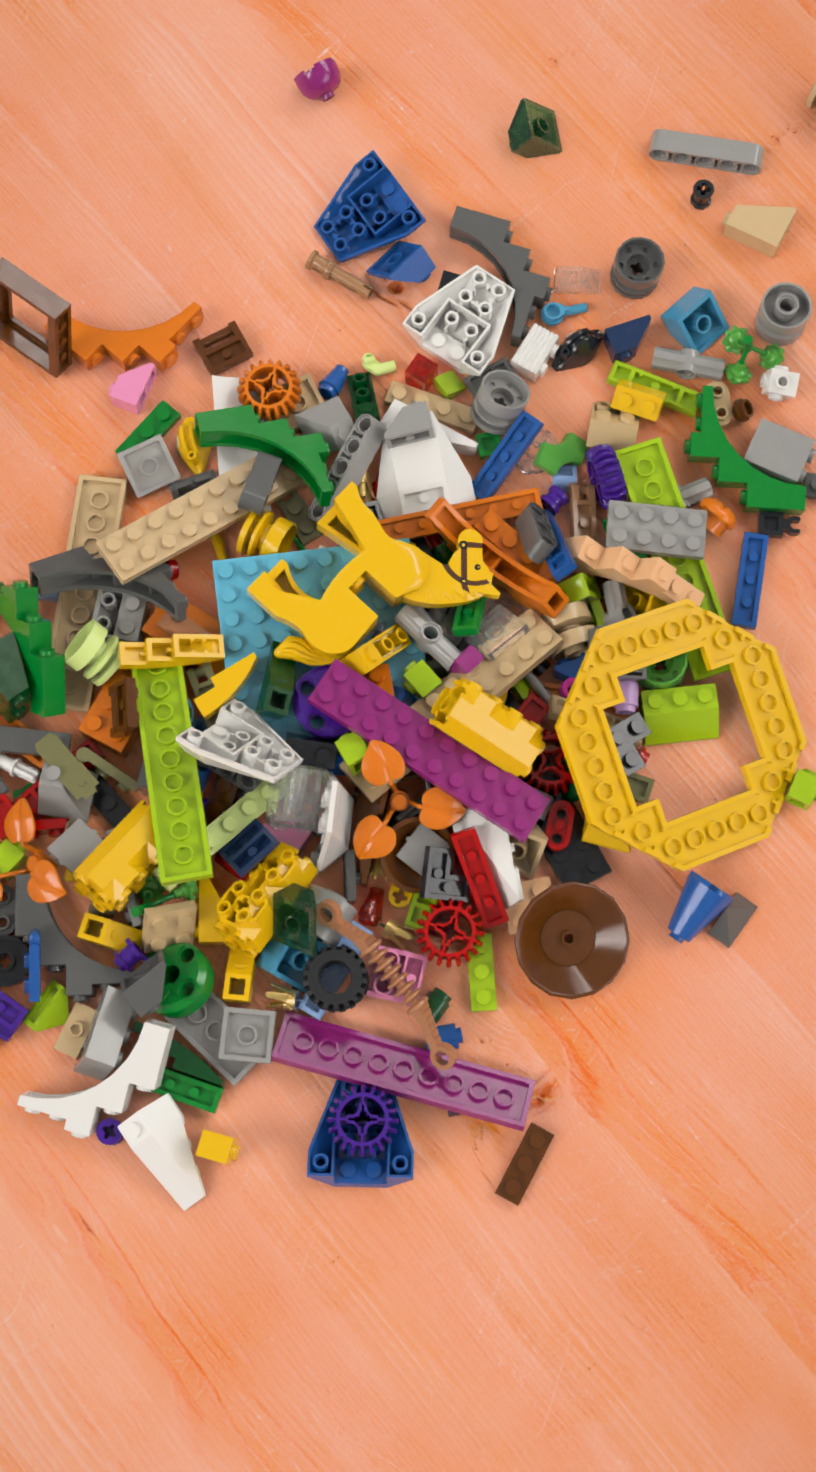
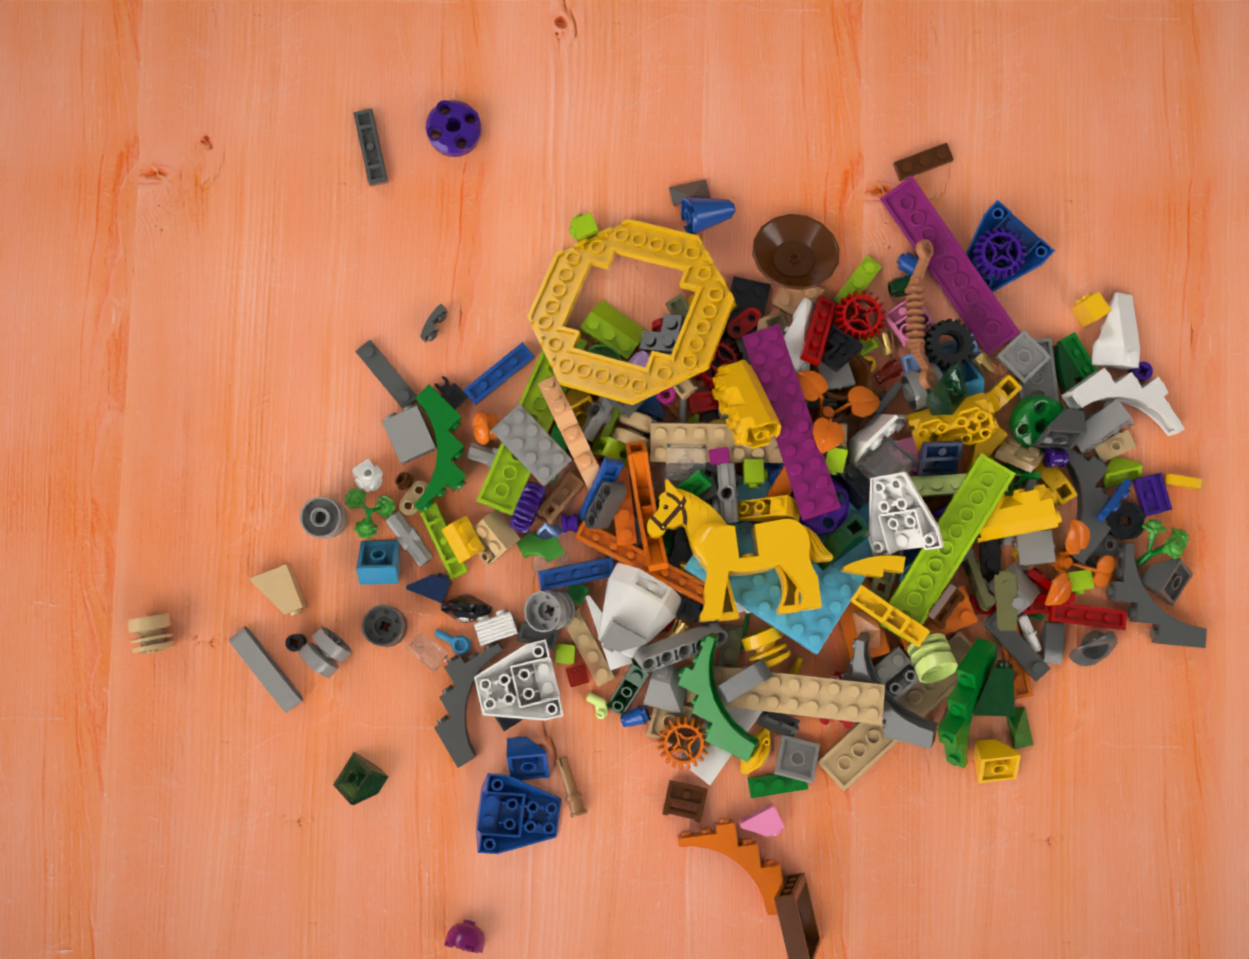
camera: 140 degrees left, 10 degrees up
(668, 203) = (322, 656): none -> light grey wheel

